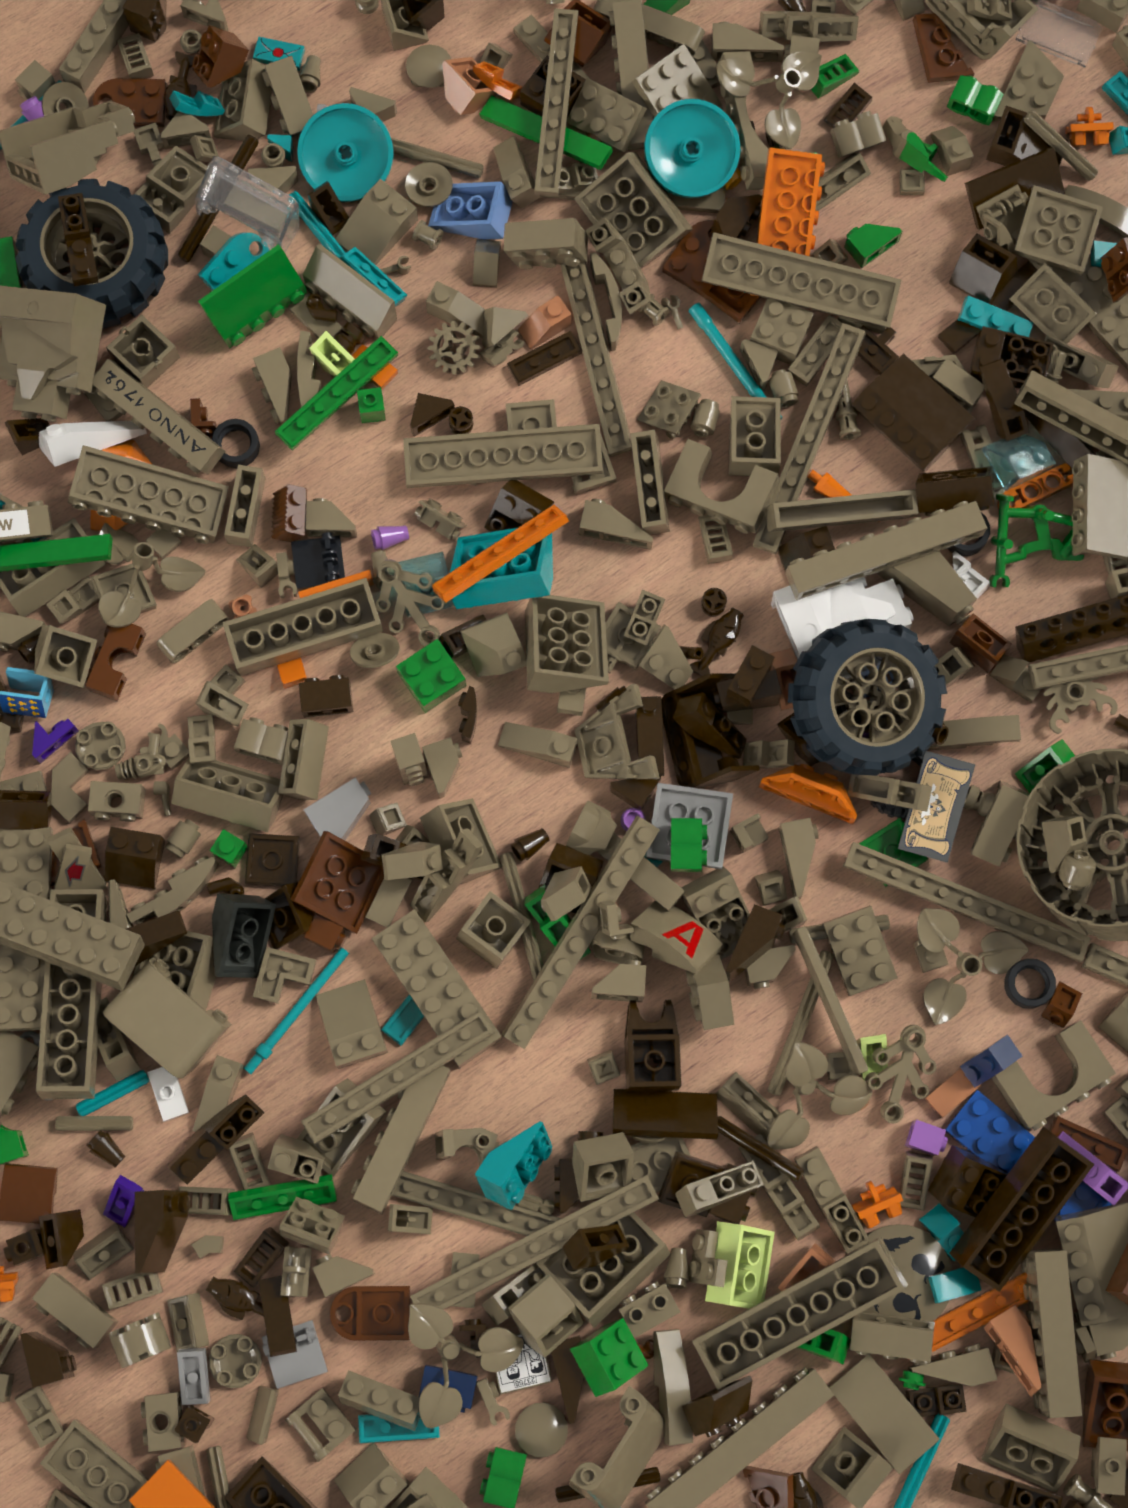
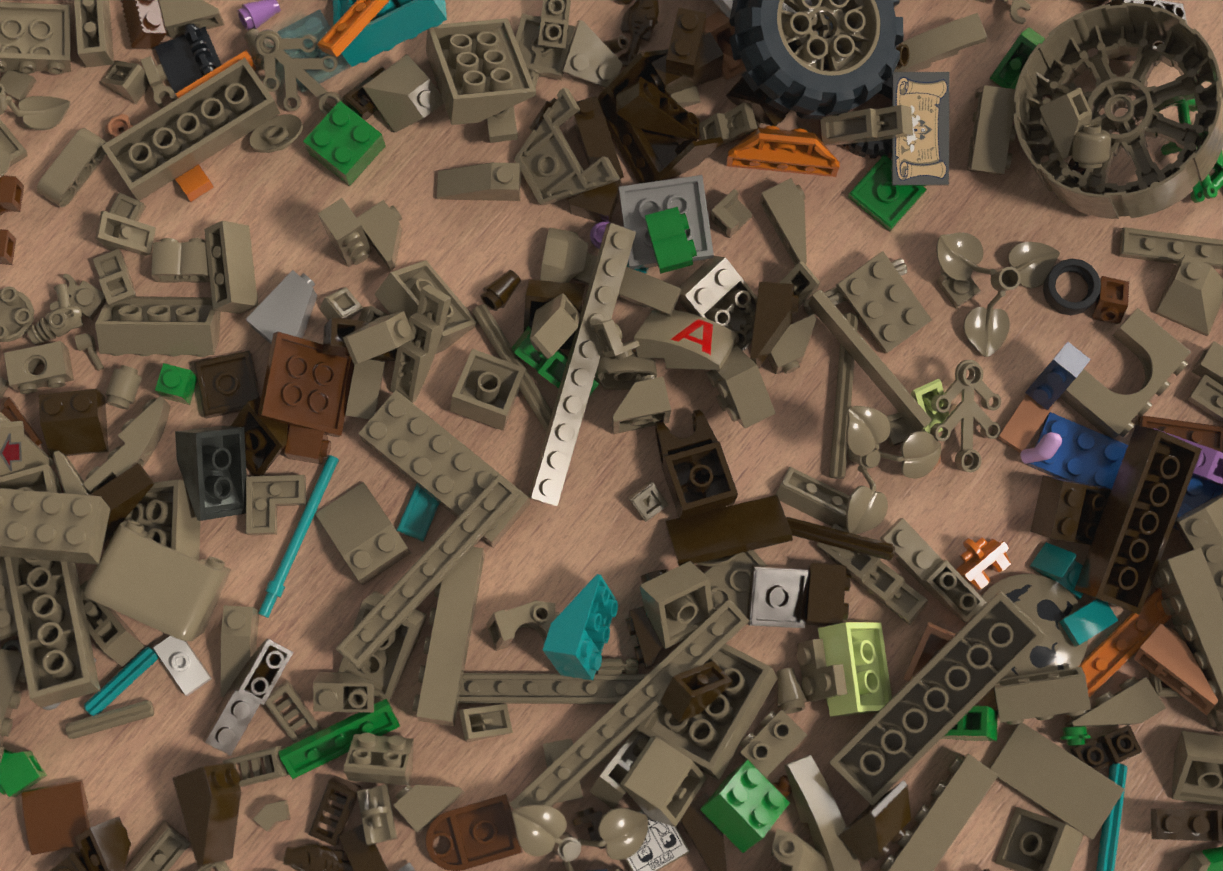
camera: 15 degrees left, 0 degrees up
(106, 1149) = (130, 743): dark brown cone -> none
(122, 1201) = (162, 795): dark purple slope -> none
(225, 885) = (184, 423): dark brown arm -> none
(325, 696) = (237, 196): dark brown brick -> none
(468, 708) = (394, 165): dark brown slope -> none
(718, 1189) = (809, 592): dark tan slope -> none
(771, 887) = (770, 264): dark tan slope -> none
(926, 1138) = (1012, 477): medium lavender brick -> none
(926, 1171) = (1024, 524): dark tan slope -> none
(961, 1122) = (1044, 450): none -> lavender arm
(967, 902) = (980, 220): dark tan plate -> none
(984, 801) = (962, 114): dark tan wheel -> none

